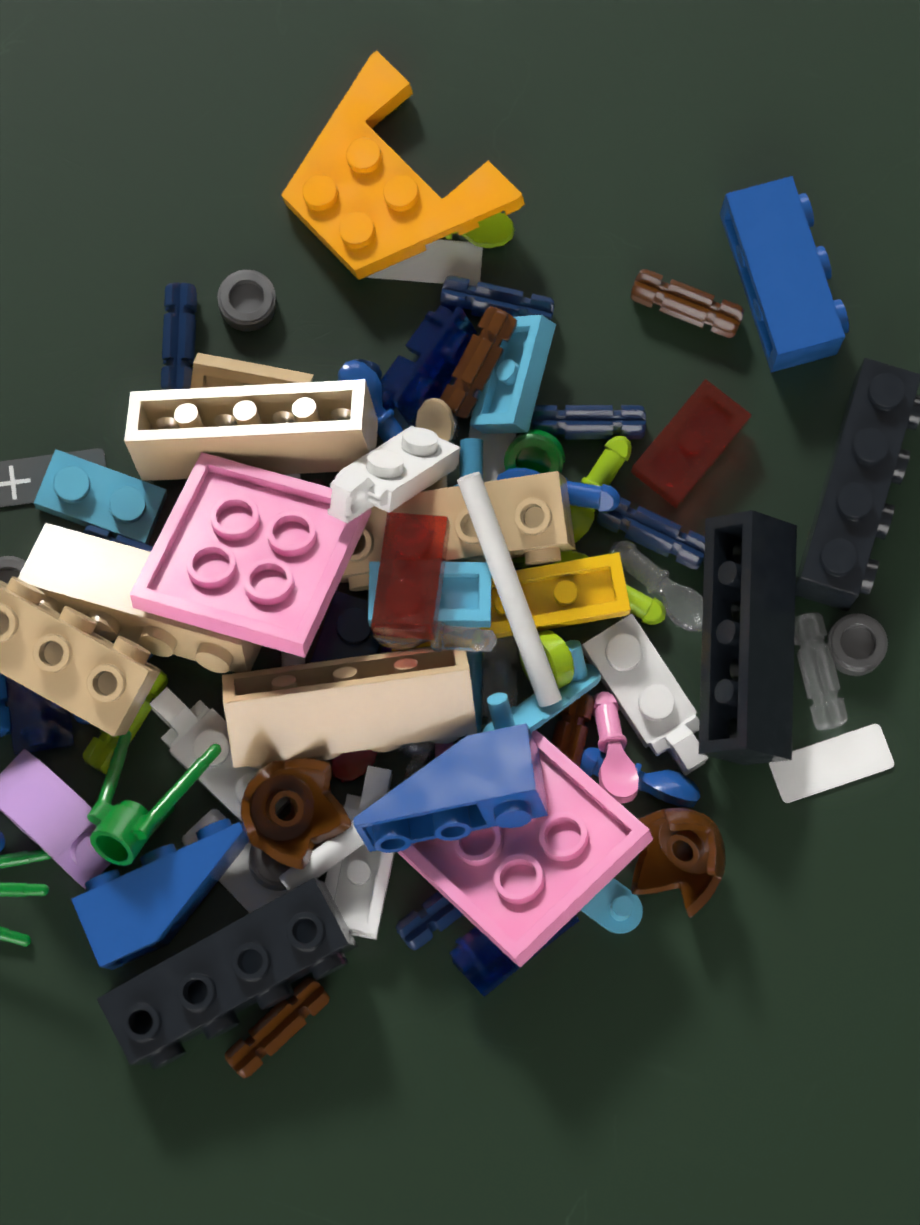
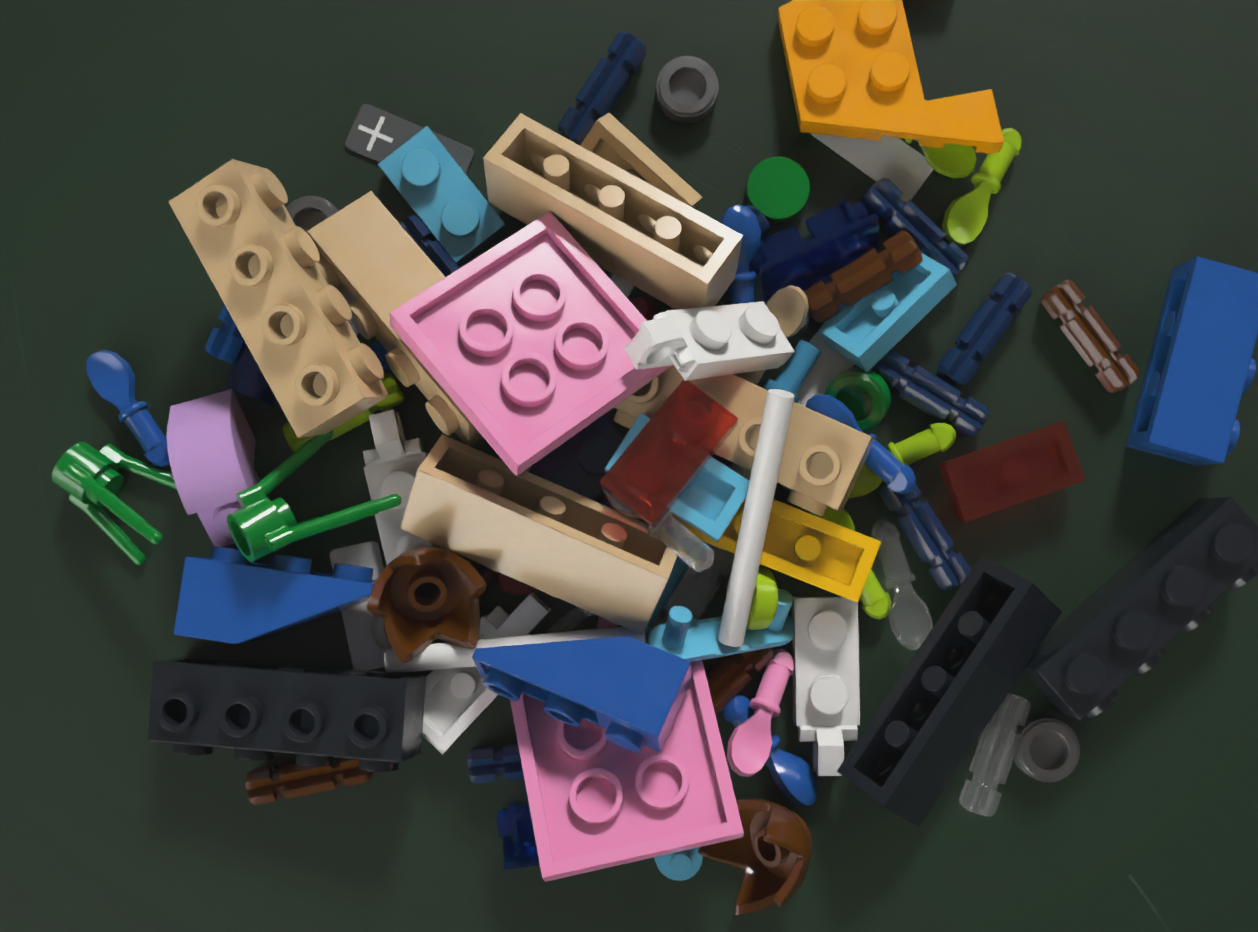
camera: 30 degrees right, 10 degrees up
(368, 334) = (778, 189): none -> green tile
(531, 265) = (969, 212): none -> lime piece
(601, 347) = (984, 329): none -> dark blue axle
(832, 763) = (956, 842): white sticker -> none

